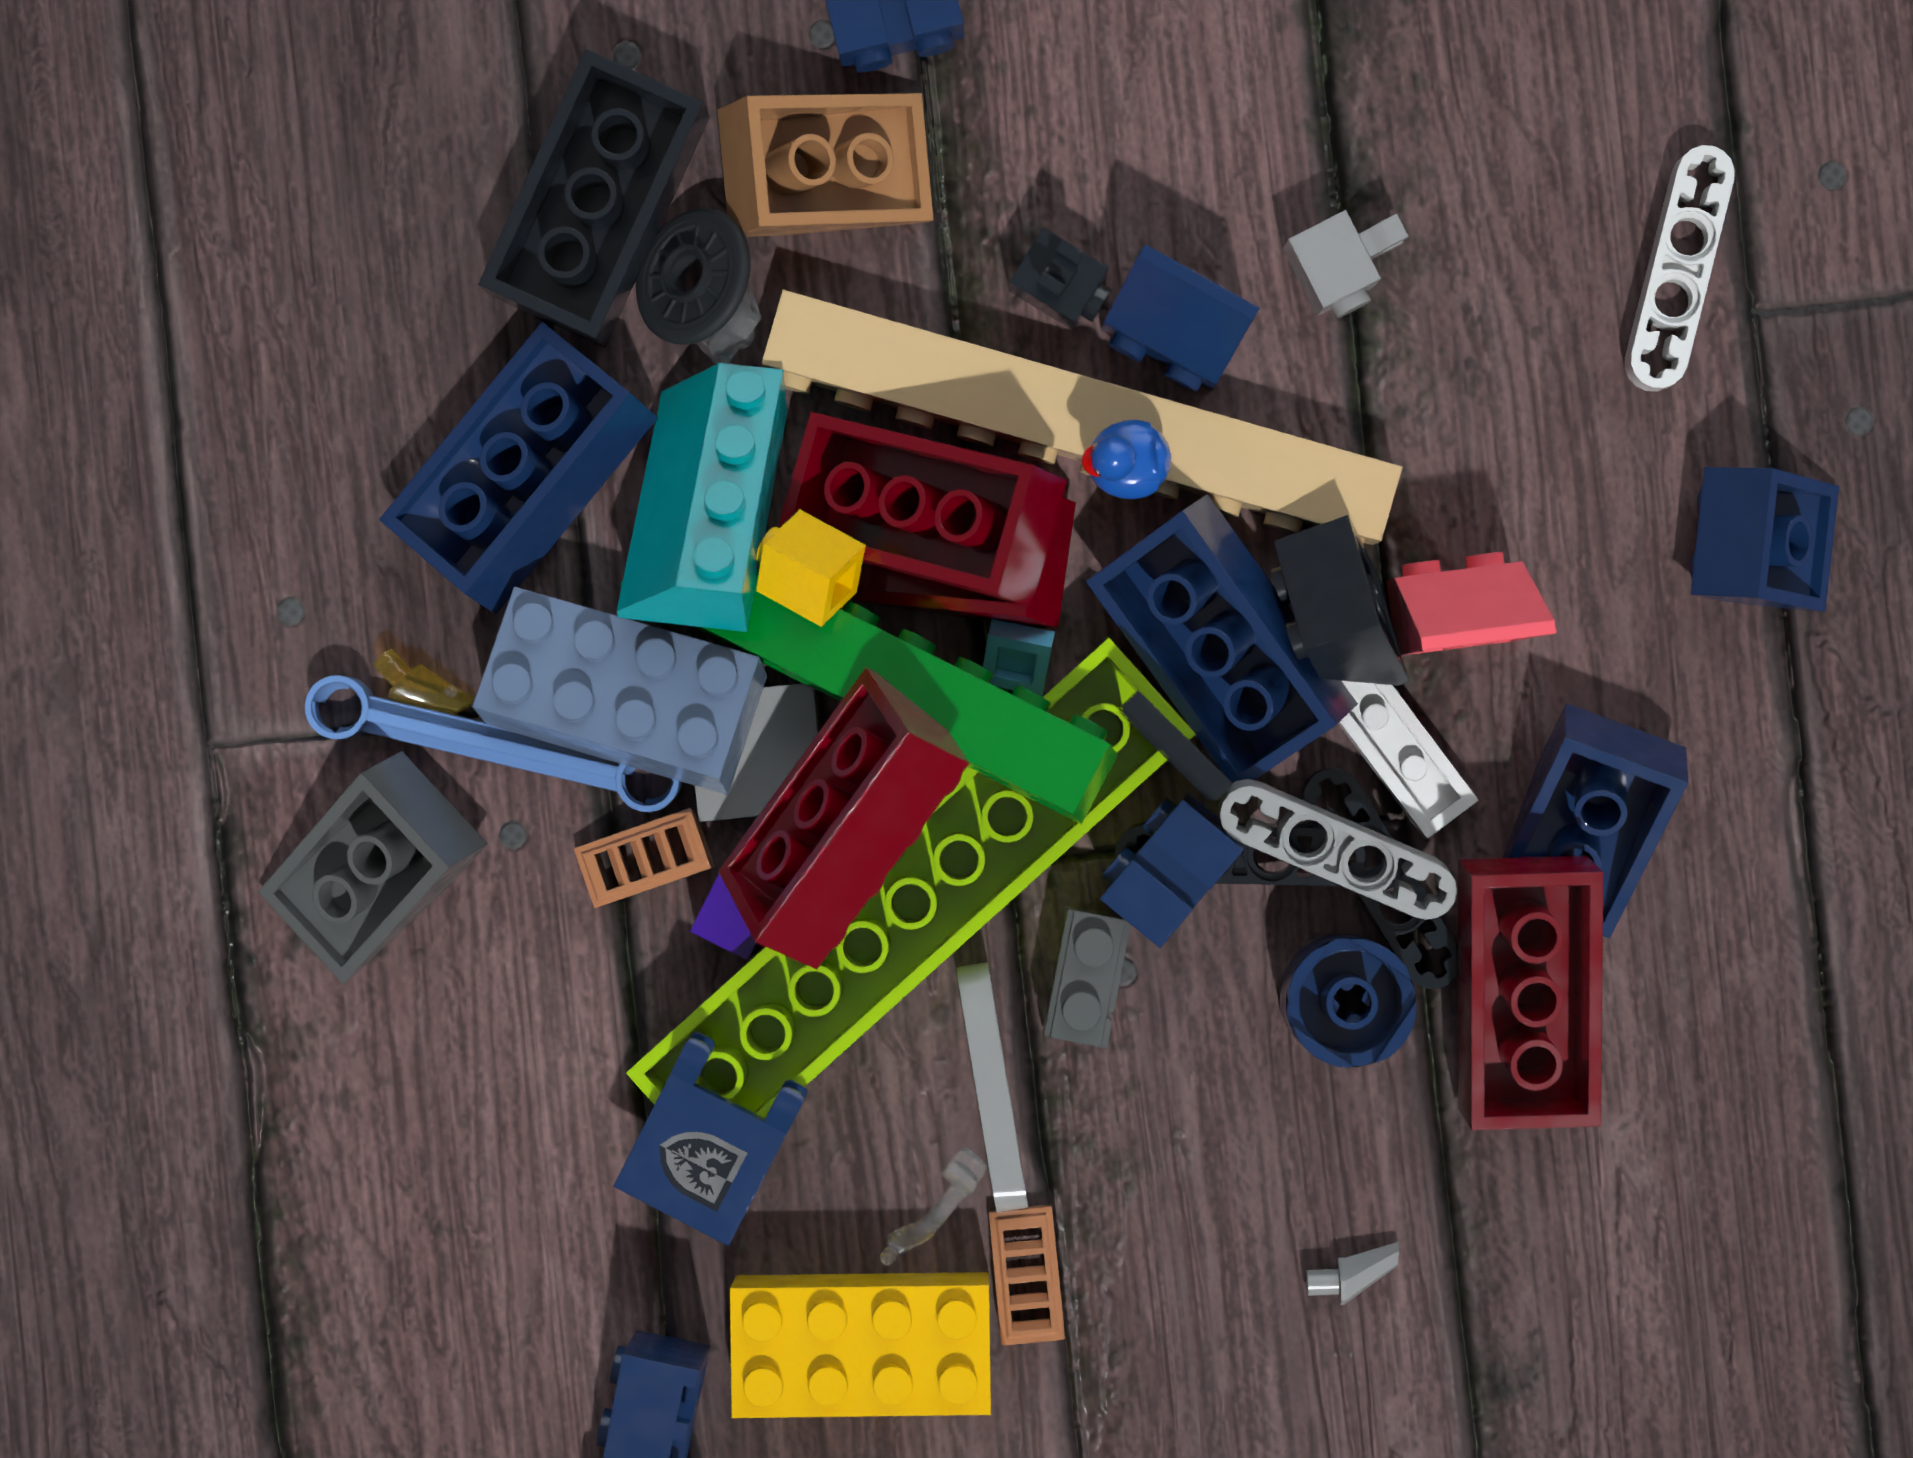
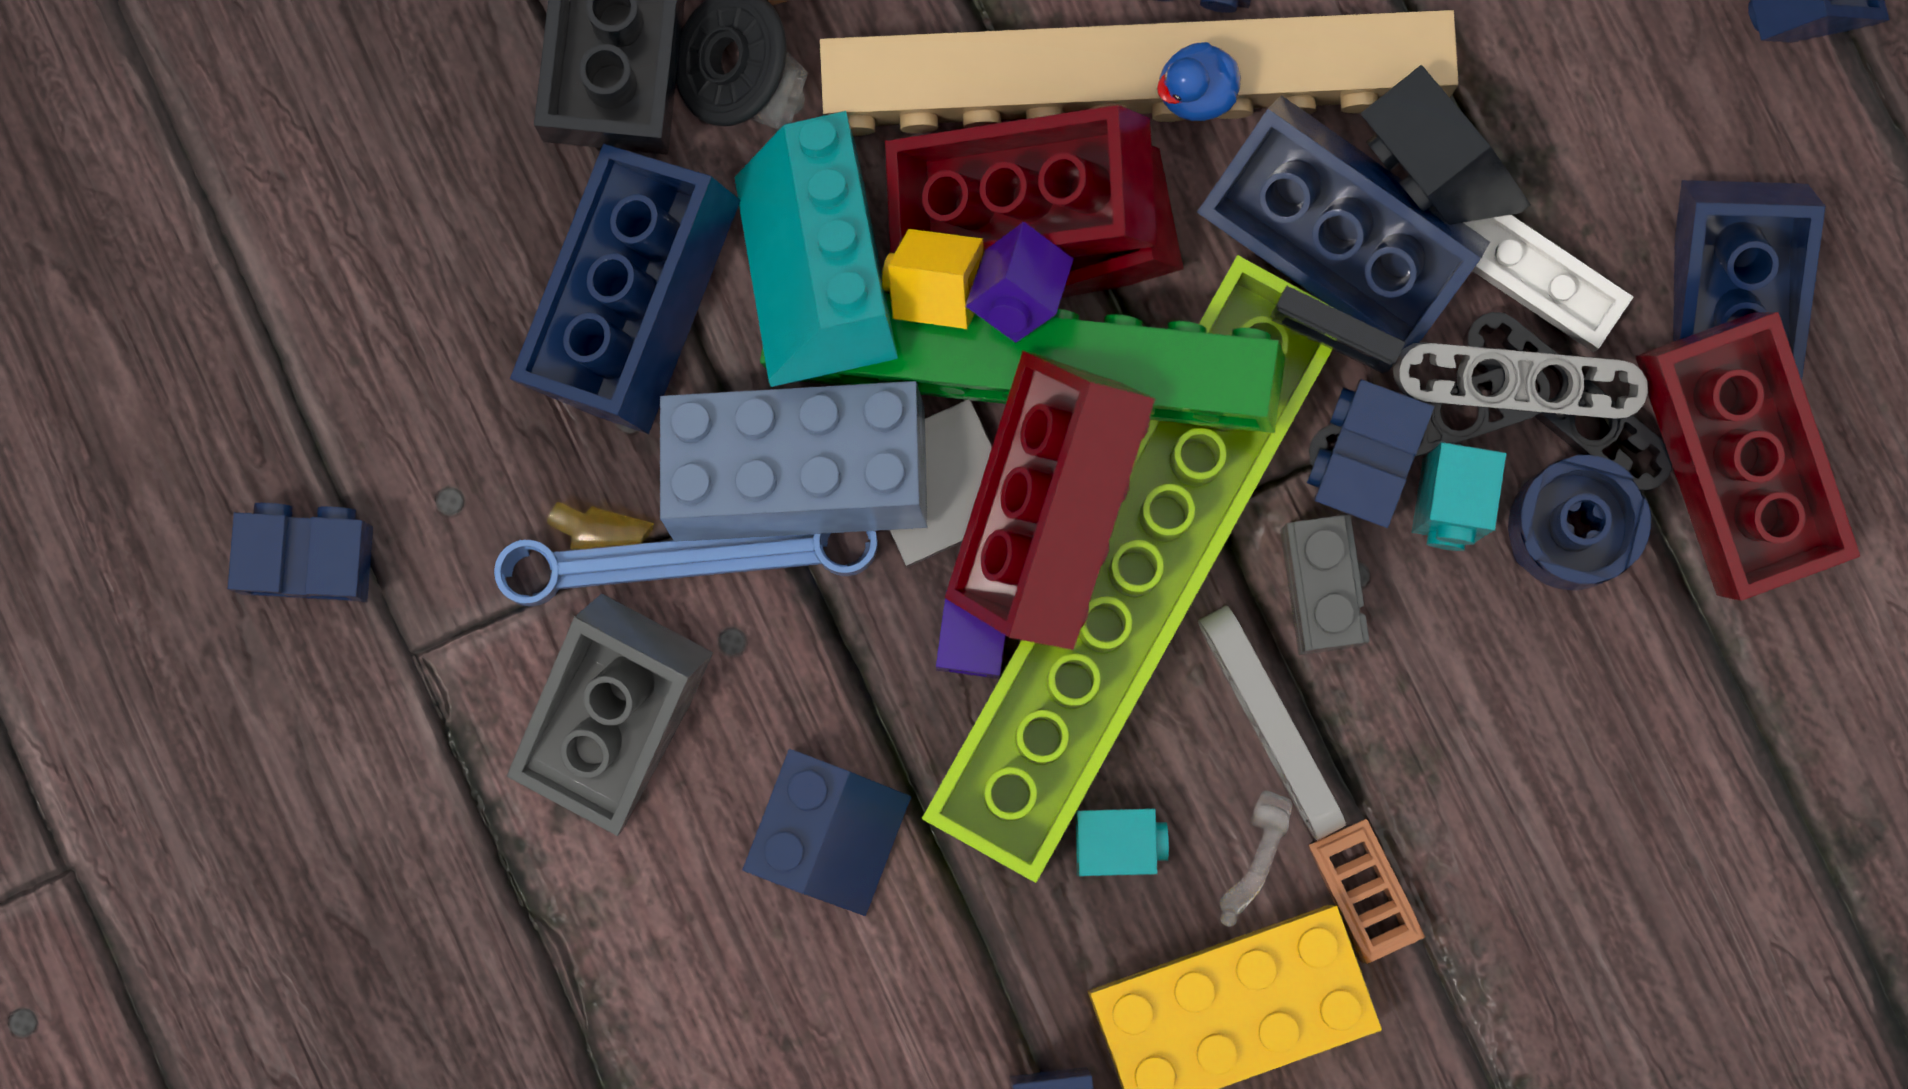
camera: 15 degrees left, 5 degrees down
(129, 620) = (300, 556): none -> dark blue brick
(537, 1049) = (826, 832): none -> dark blue slope
(693, 842) = (870, 583): nougat slope -> none
(702, 1152) = (1021, 868): dark blue flag -> none
(815, 1154) = (1119, 842): none -> teal brick
(883, 602) = (1019, 282): none -> dark purple brick
(1018, 655) = (1155, 299): medium azure plate -> none
(1240, 939) = (1458, 495): none -> teal brick
(1353, 1273) = (1674, 785): light grey bar -> none
(1466, 606) = (1563, 118): coral slope -> none

